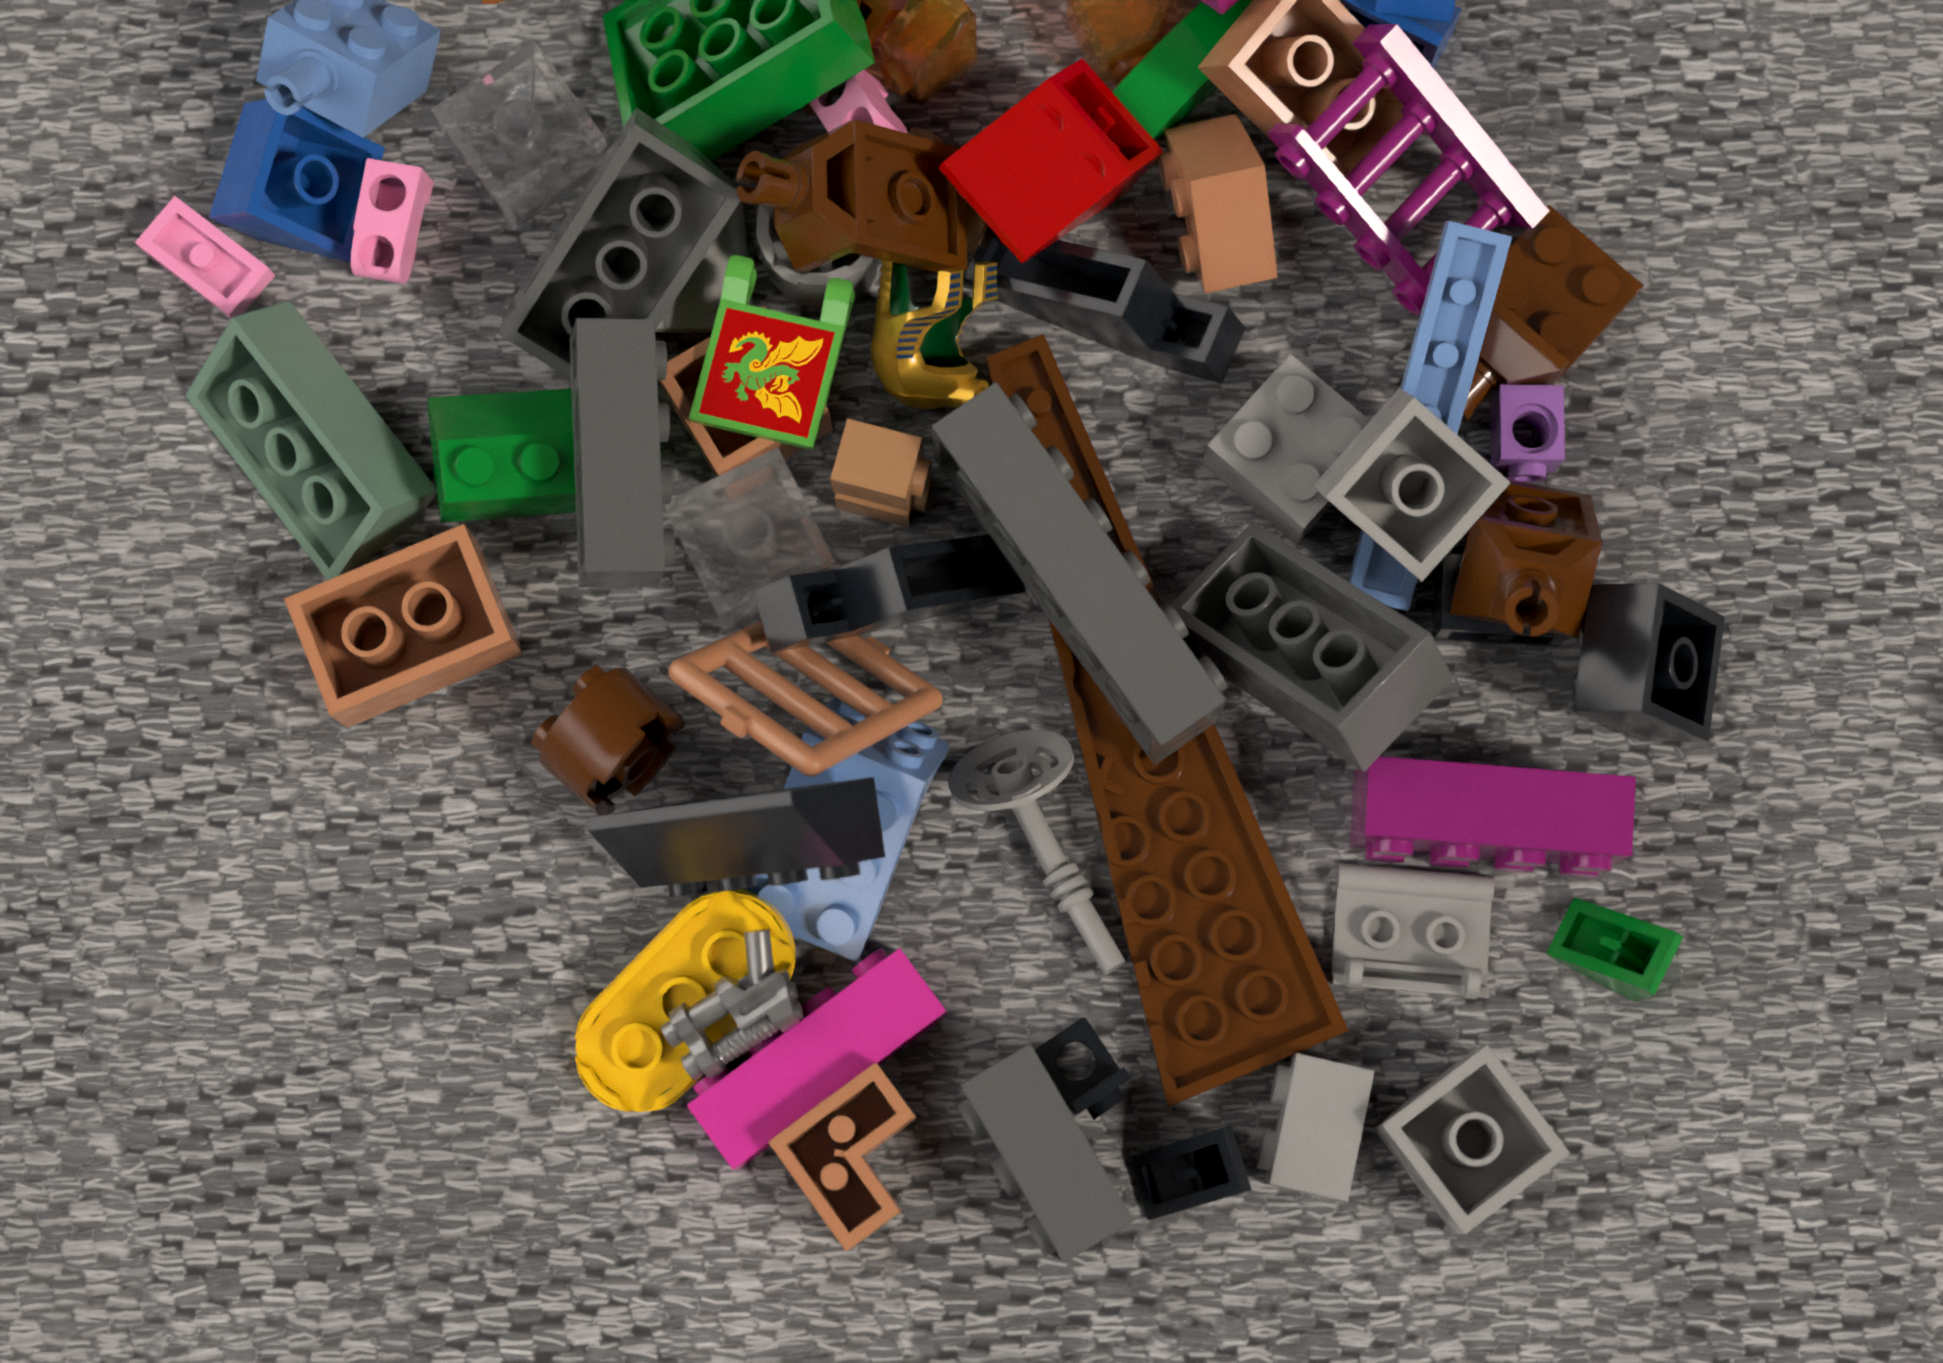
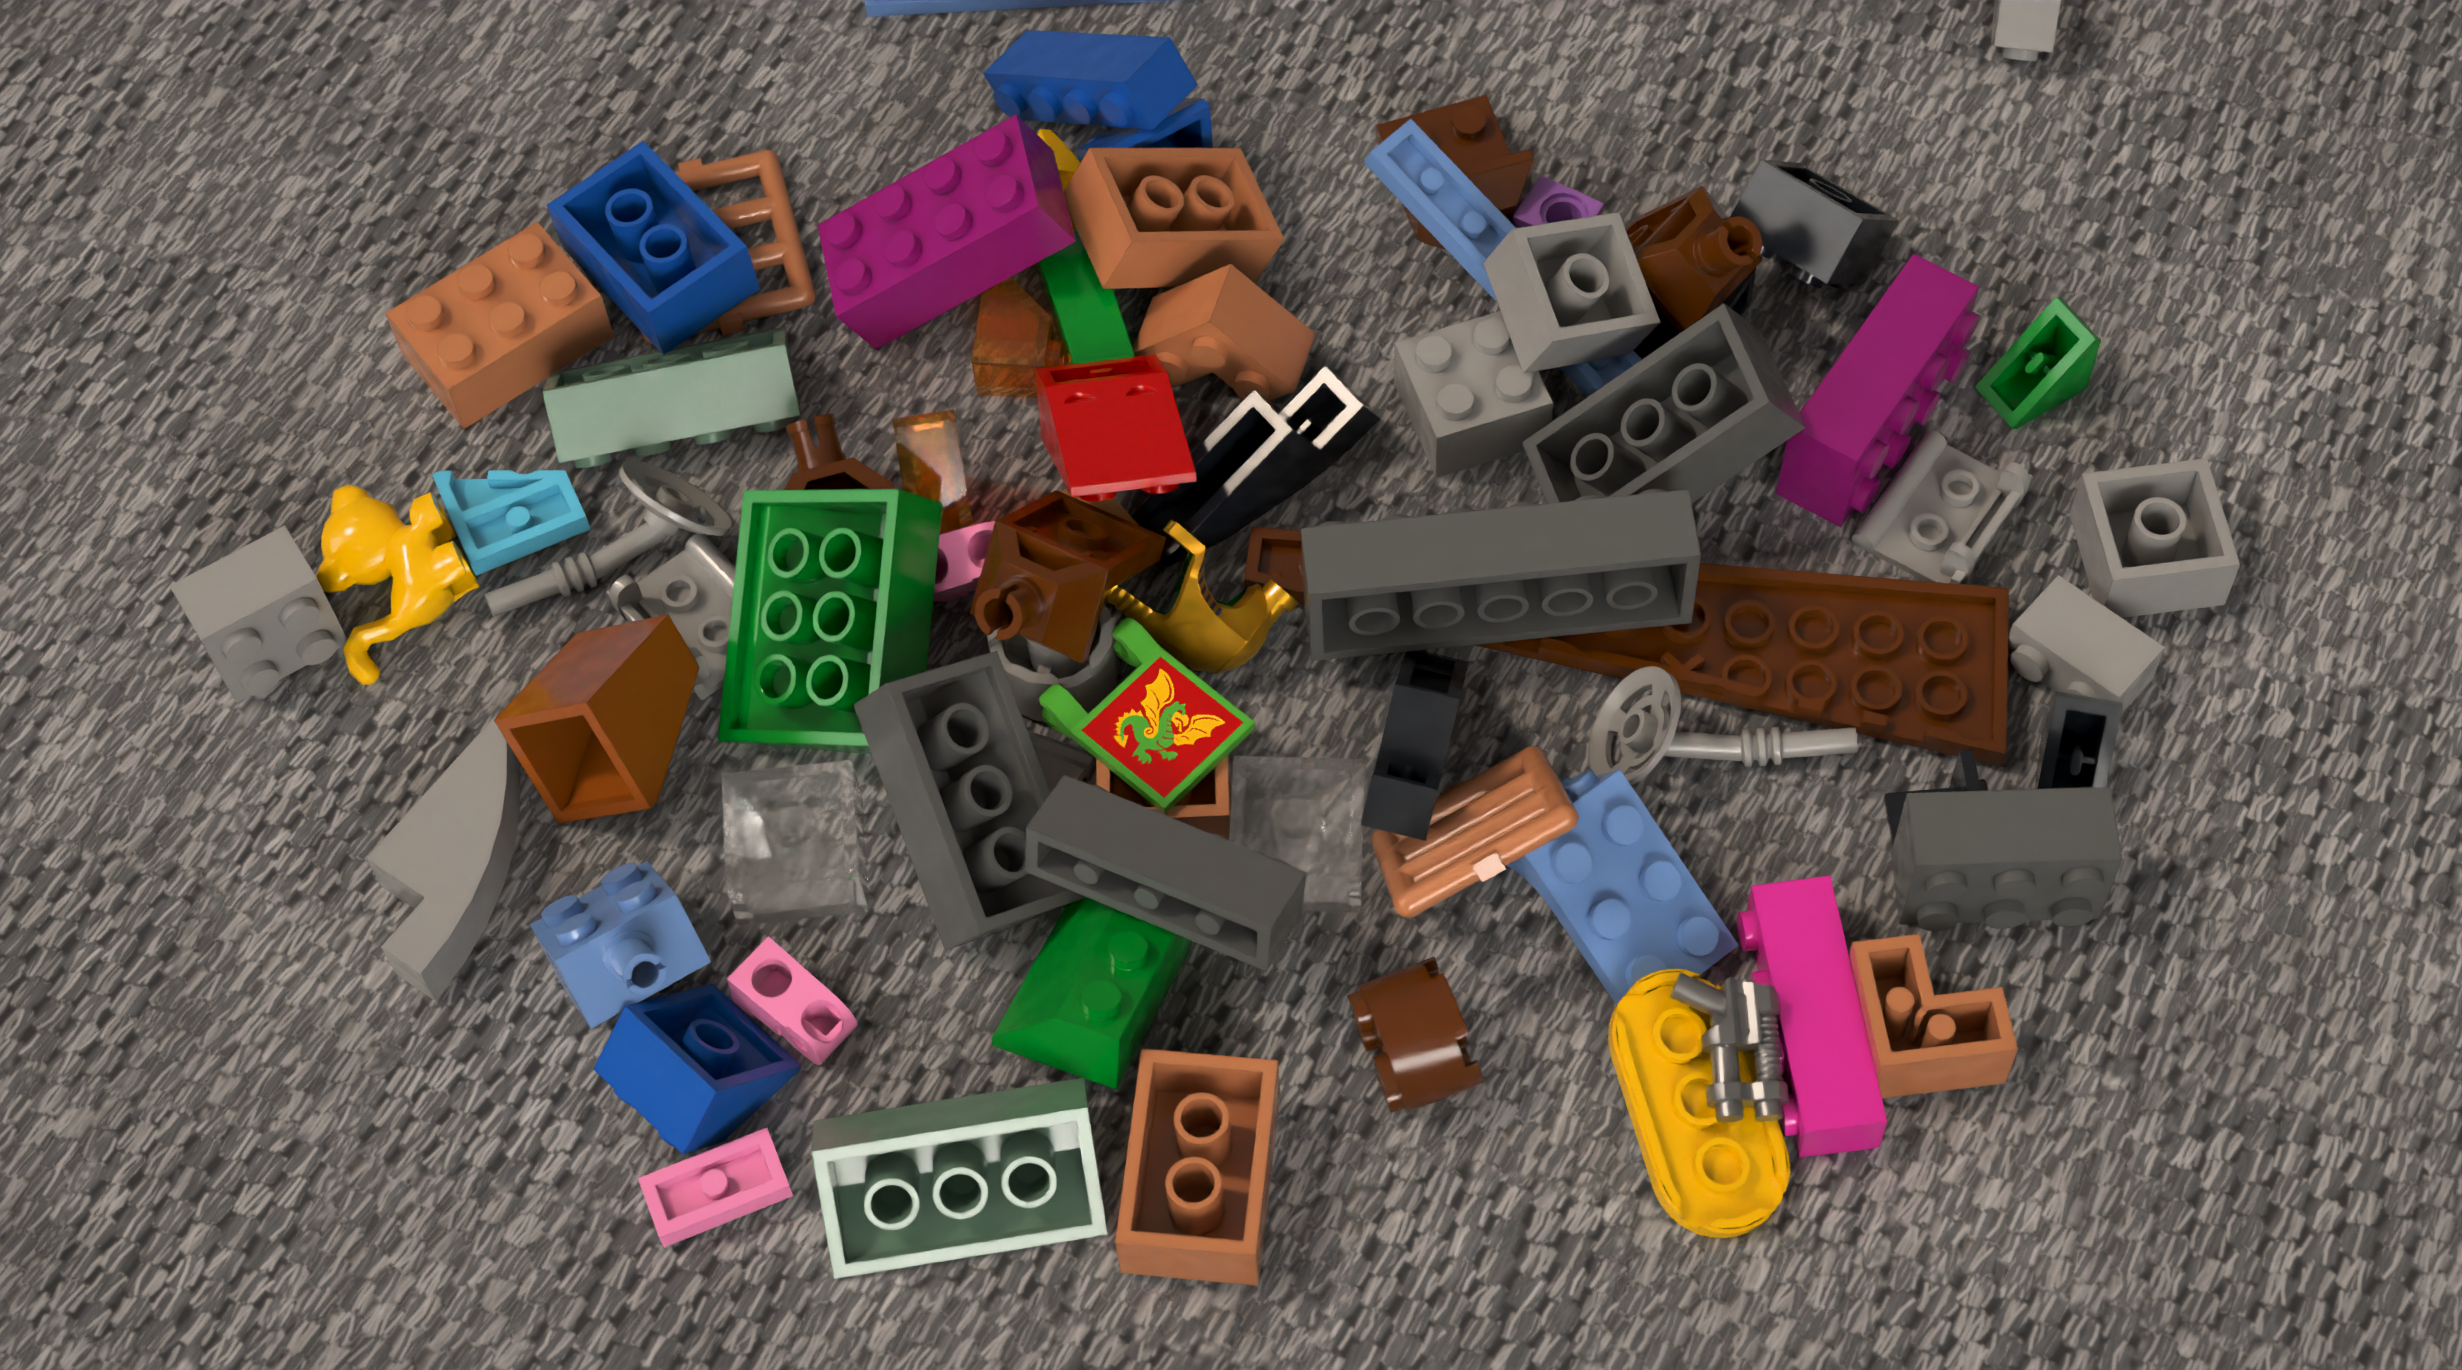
camera: 60 degrees left, 20 degrees down
(747, 836) = (1586, 938): black slope -> none
(881, 473) = (1304, 695): medium nougat brick -> none
(1427, 110) = (1301, 144): magenta fence -> none

